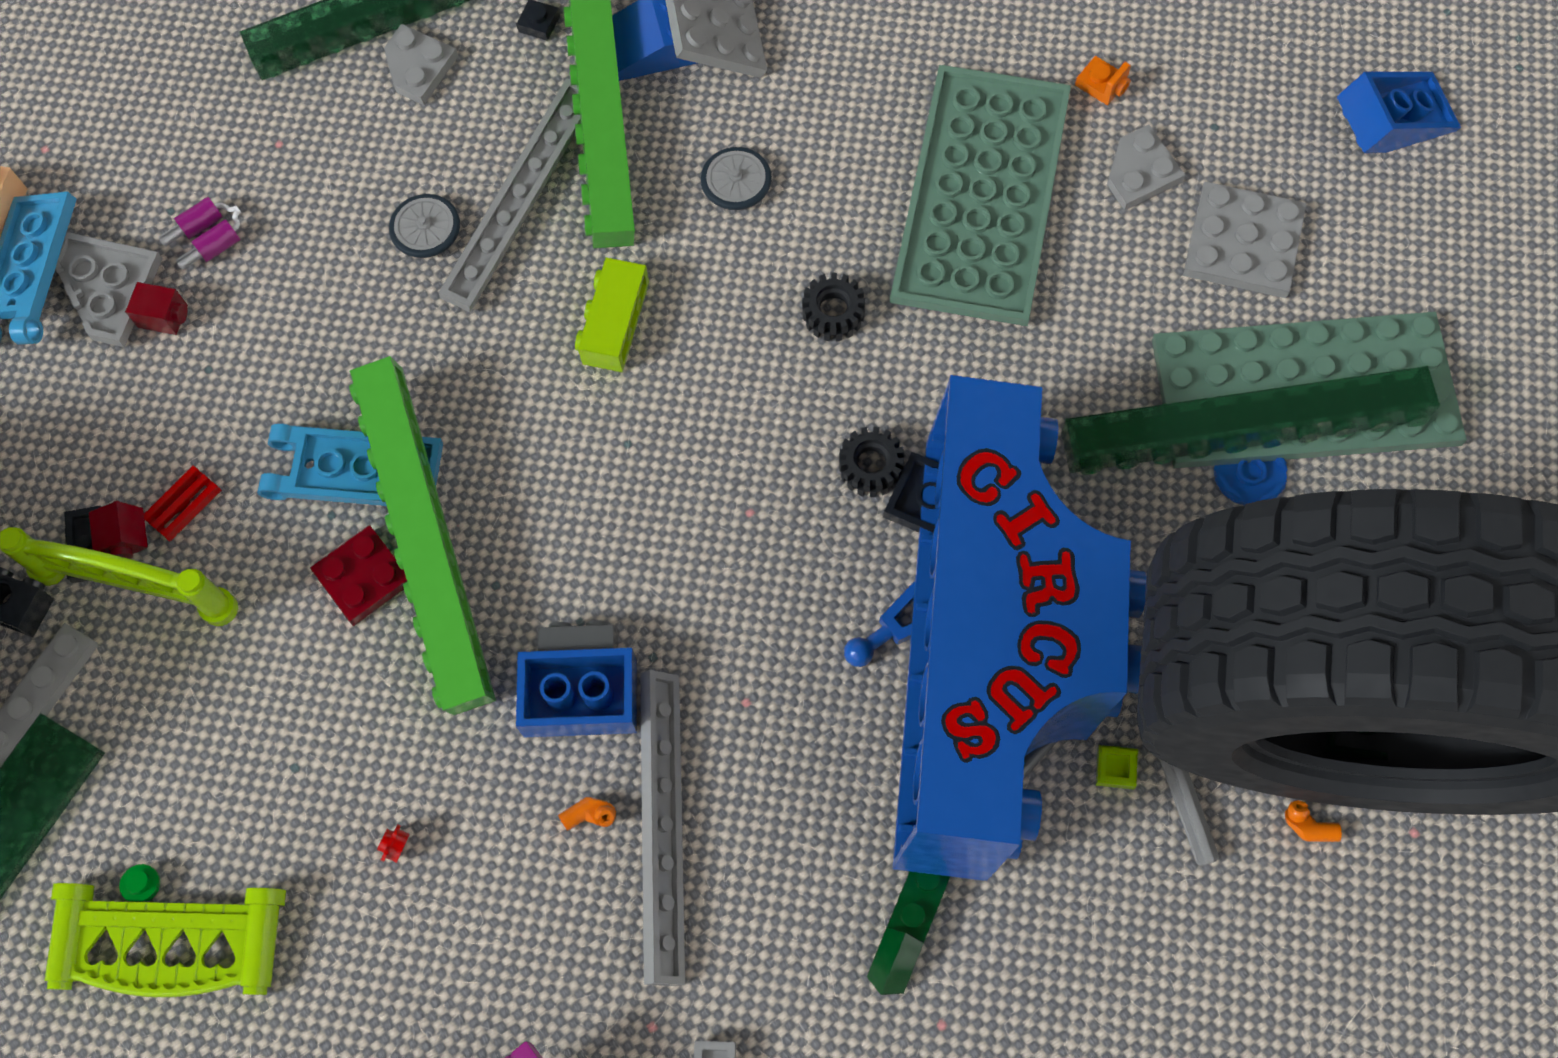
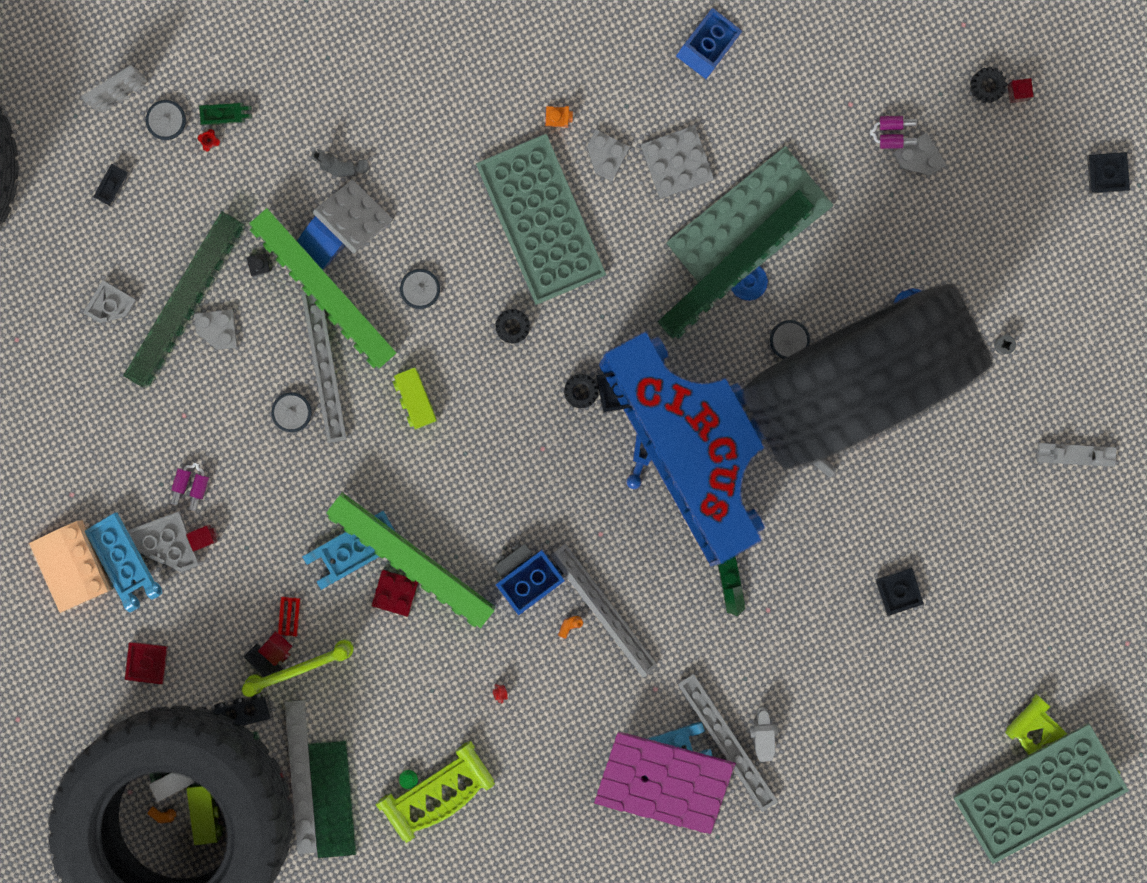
camera: 45 degrees left, 20 degrees up
(1116, 767) = (768, 459): lime tile -> none

